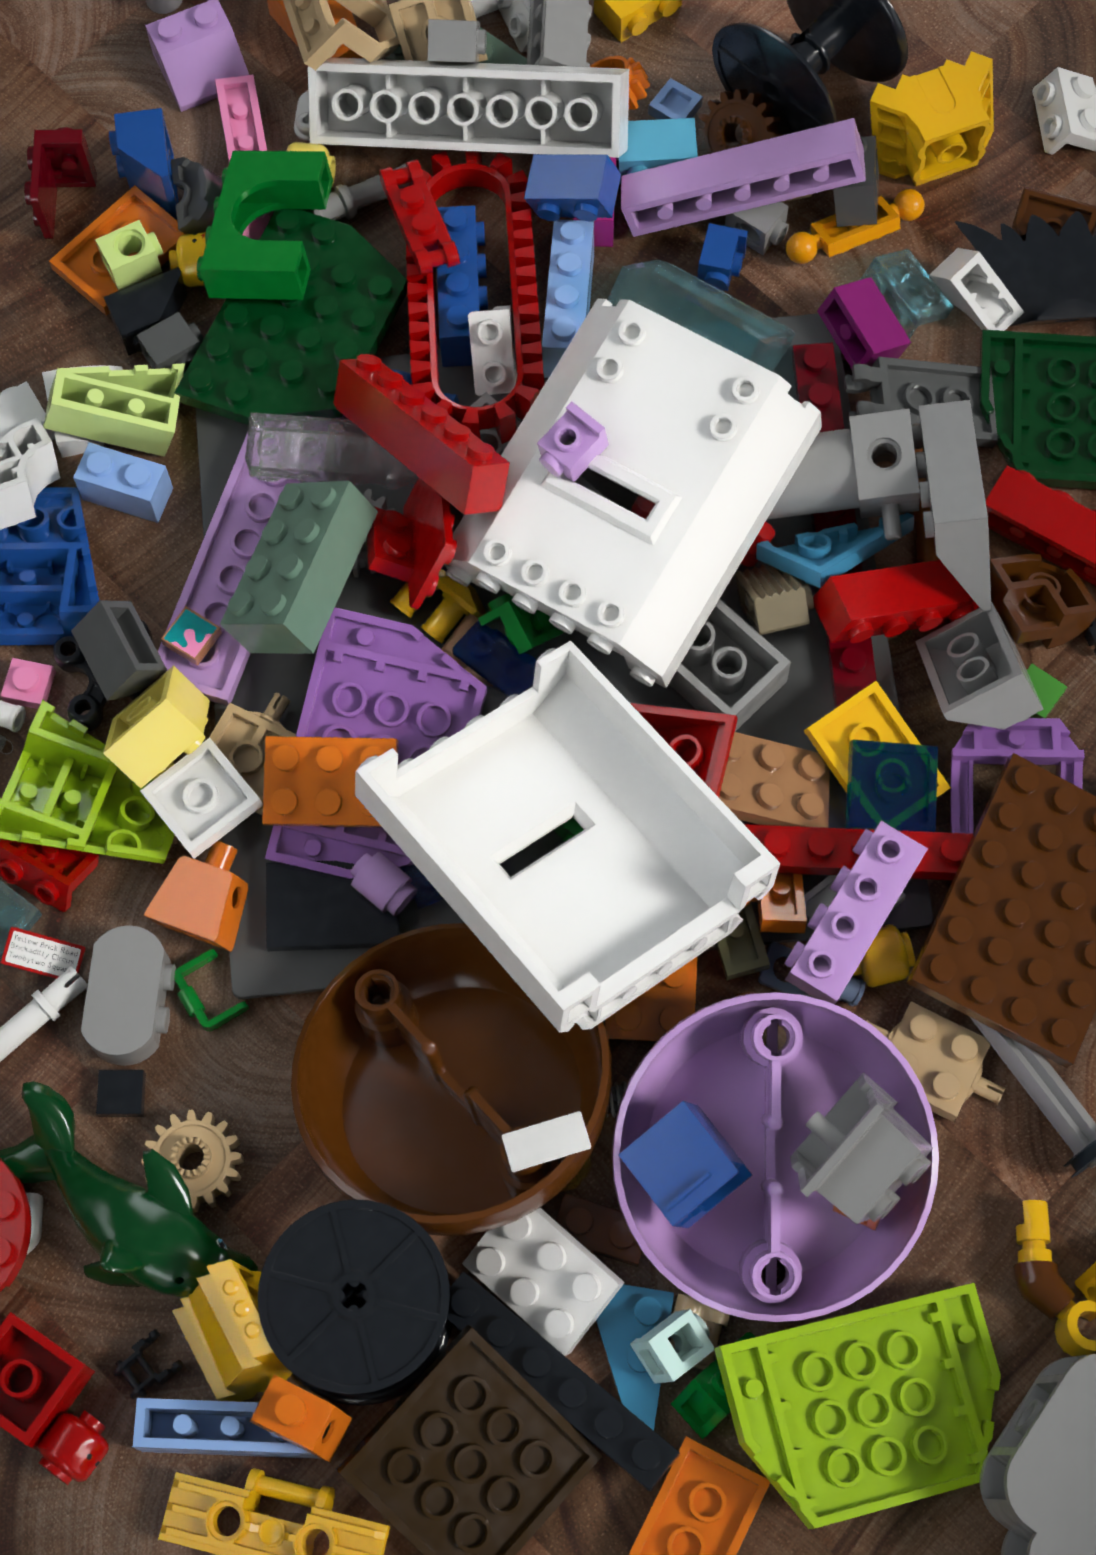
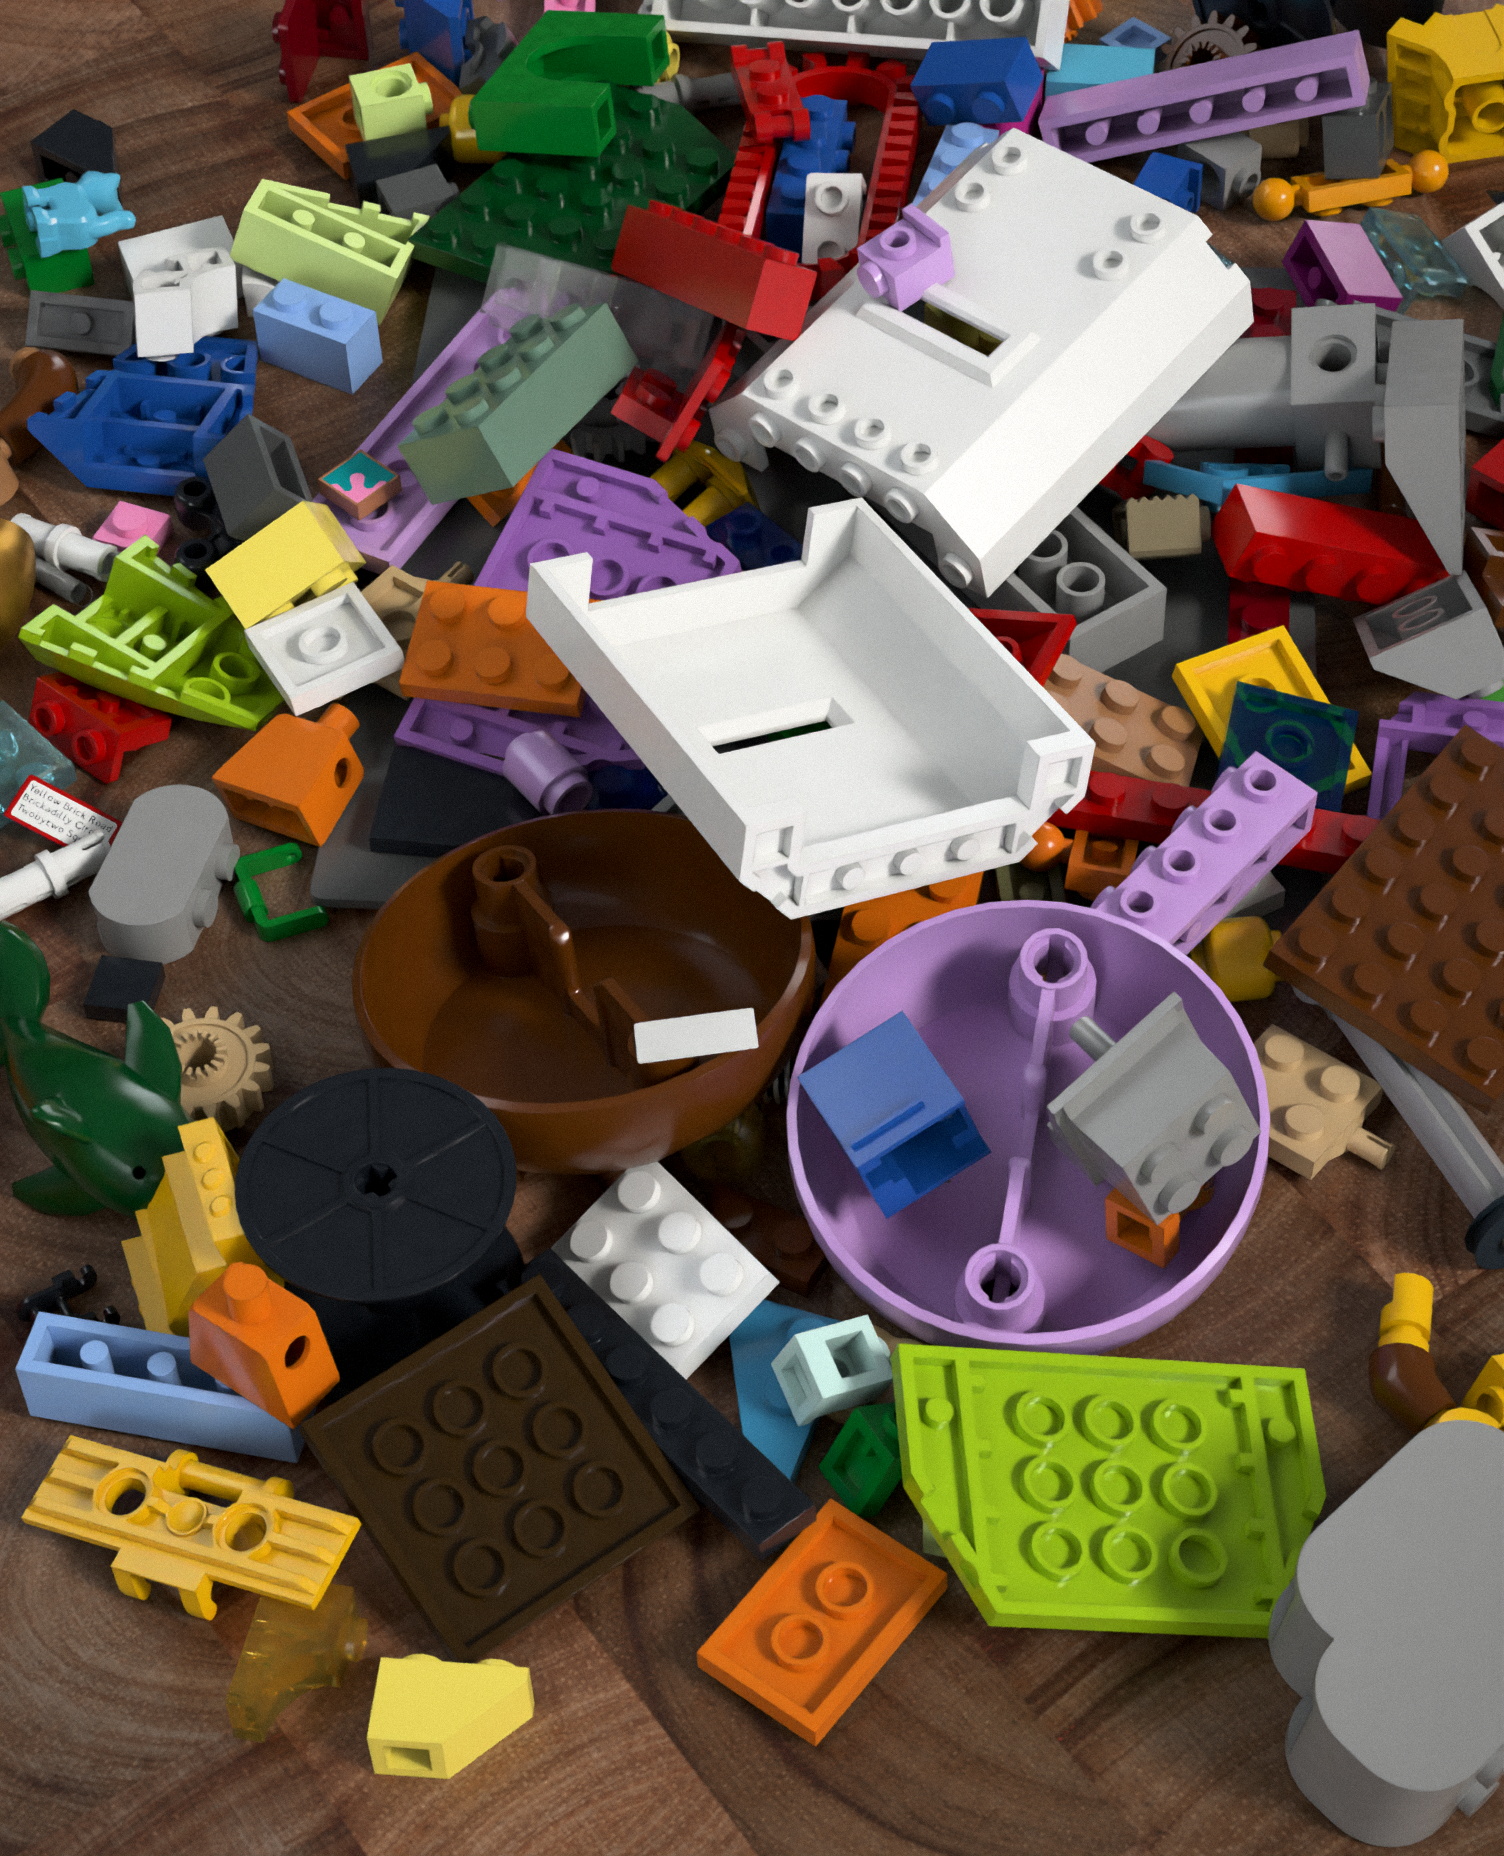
camera: 10 degrees right, 20 degrees down
(521, 627) = (791, 492): green bracket -> none

